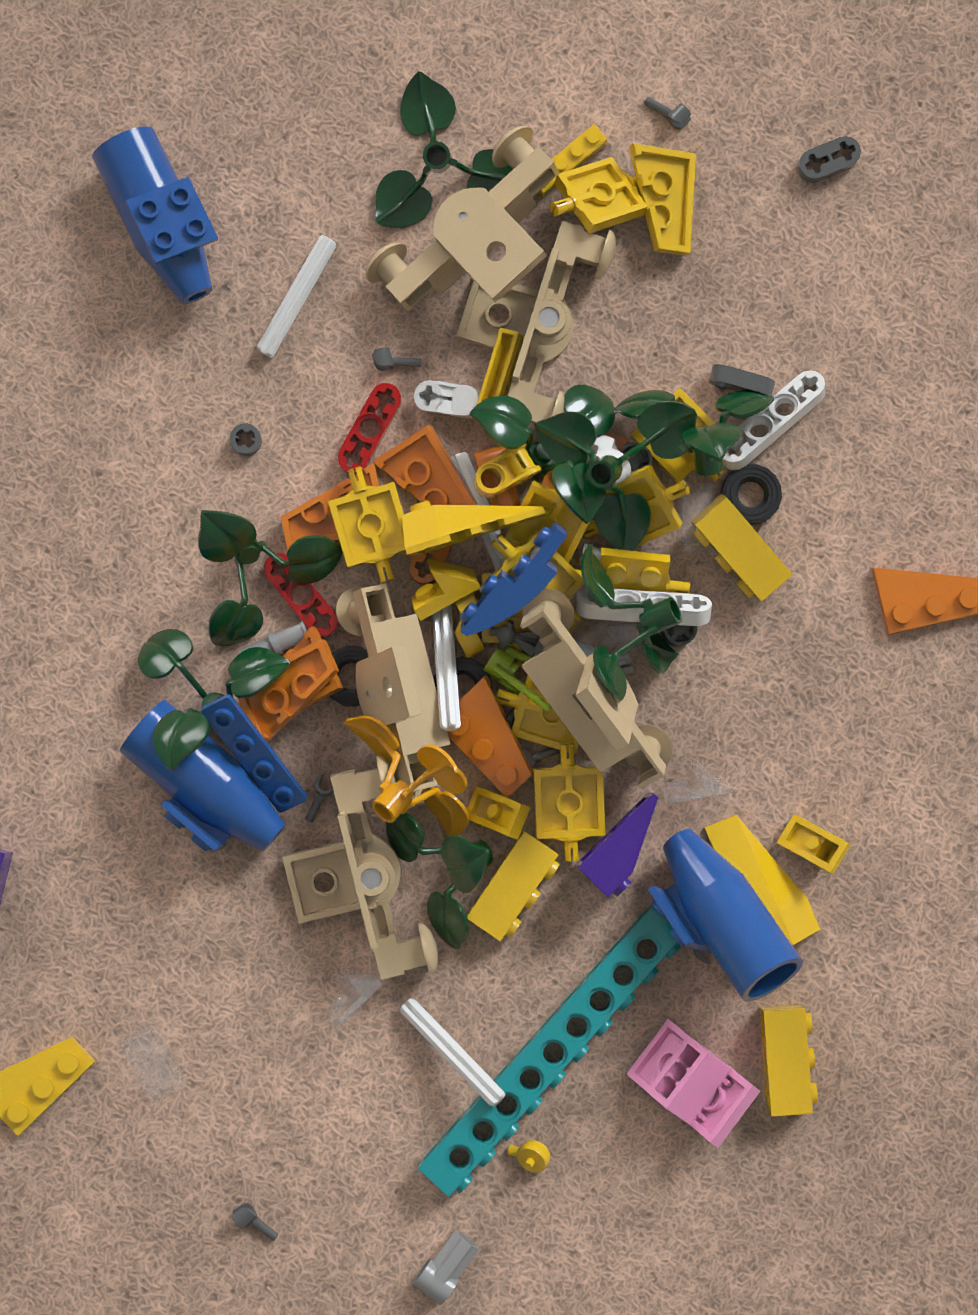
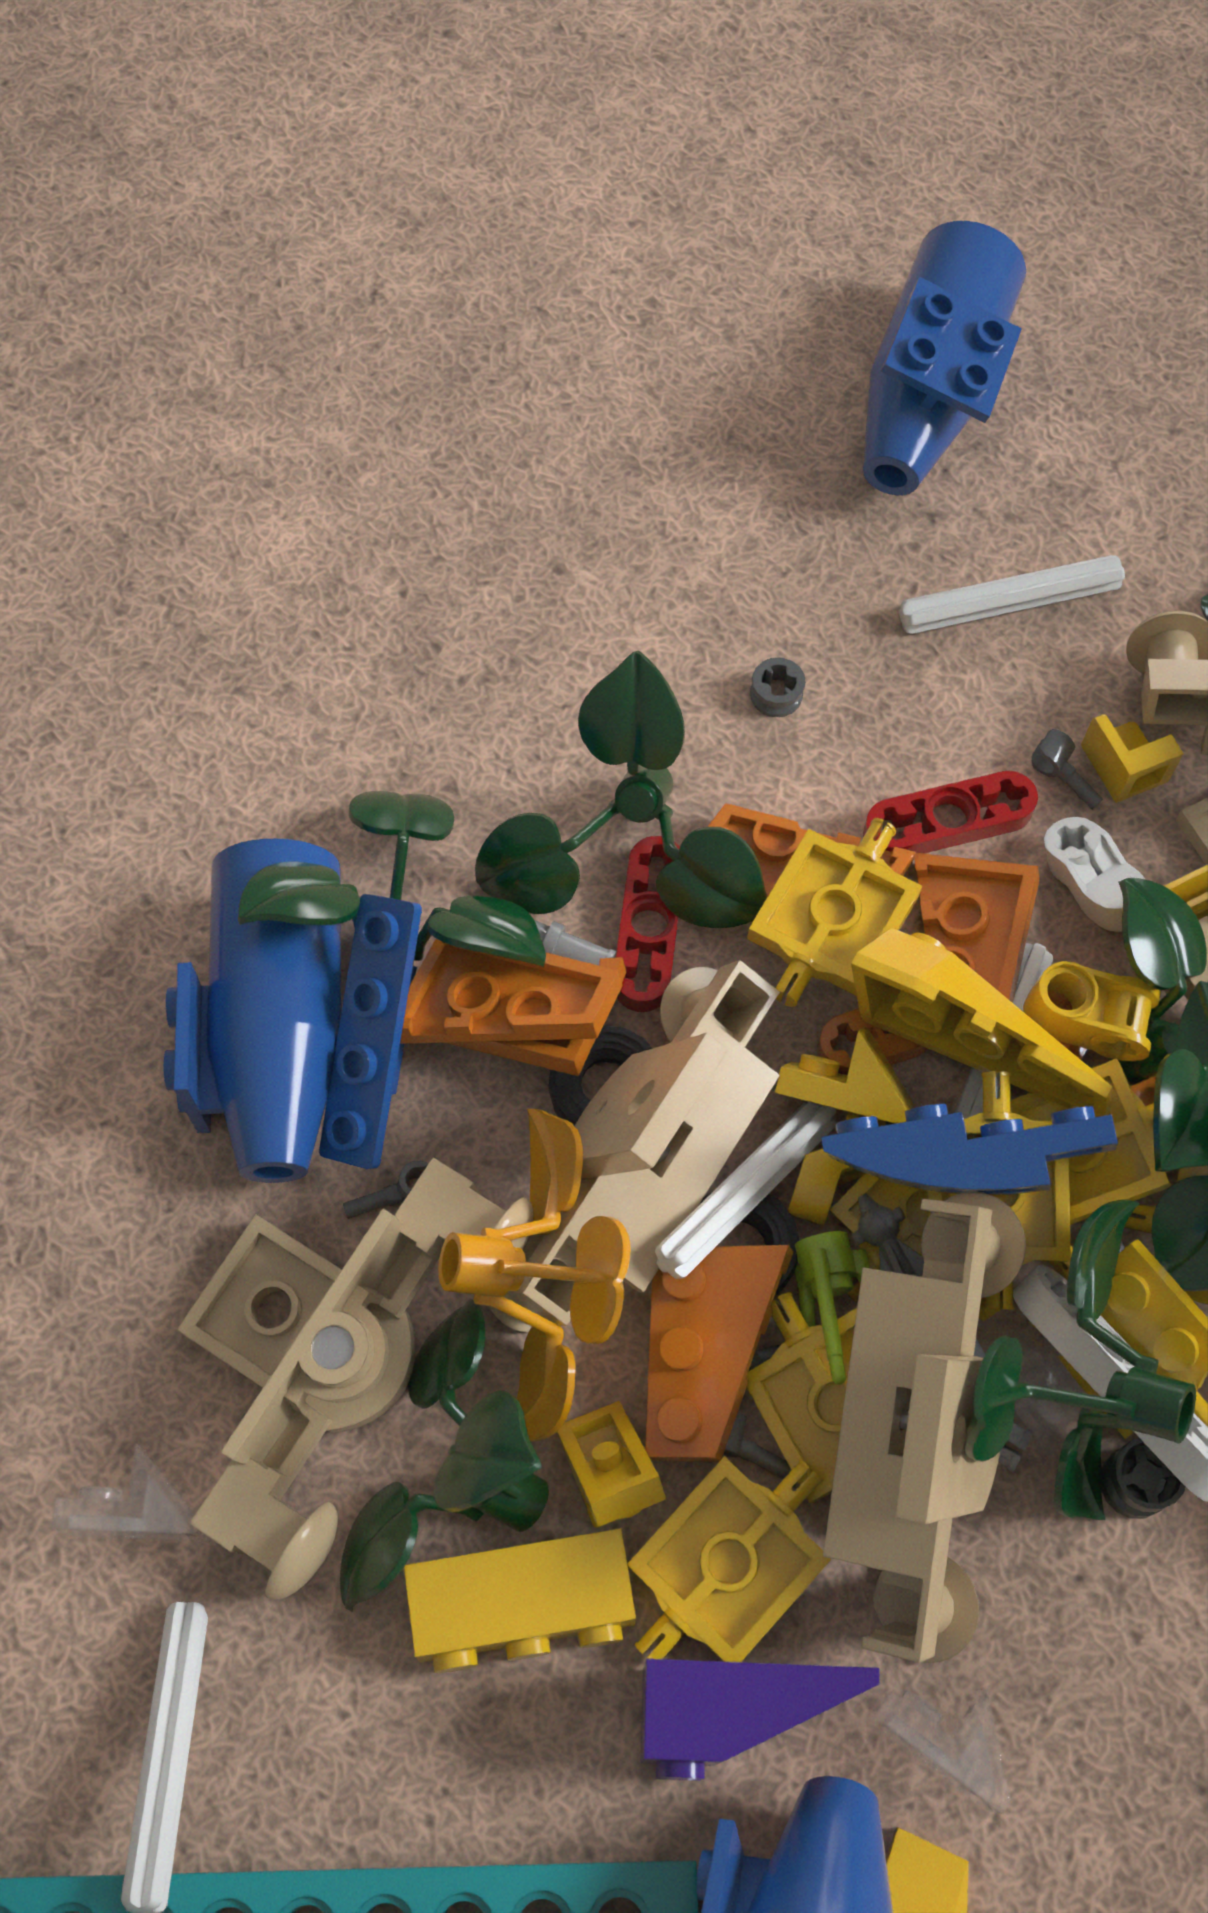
camera: 50 degrees right, 20 degrees down
(413, 330) = (1127, 759): none -> yellow panel

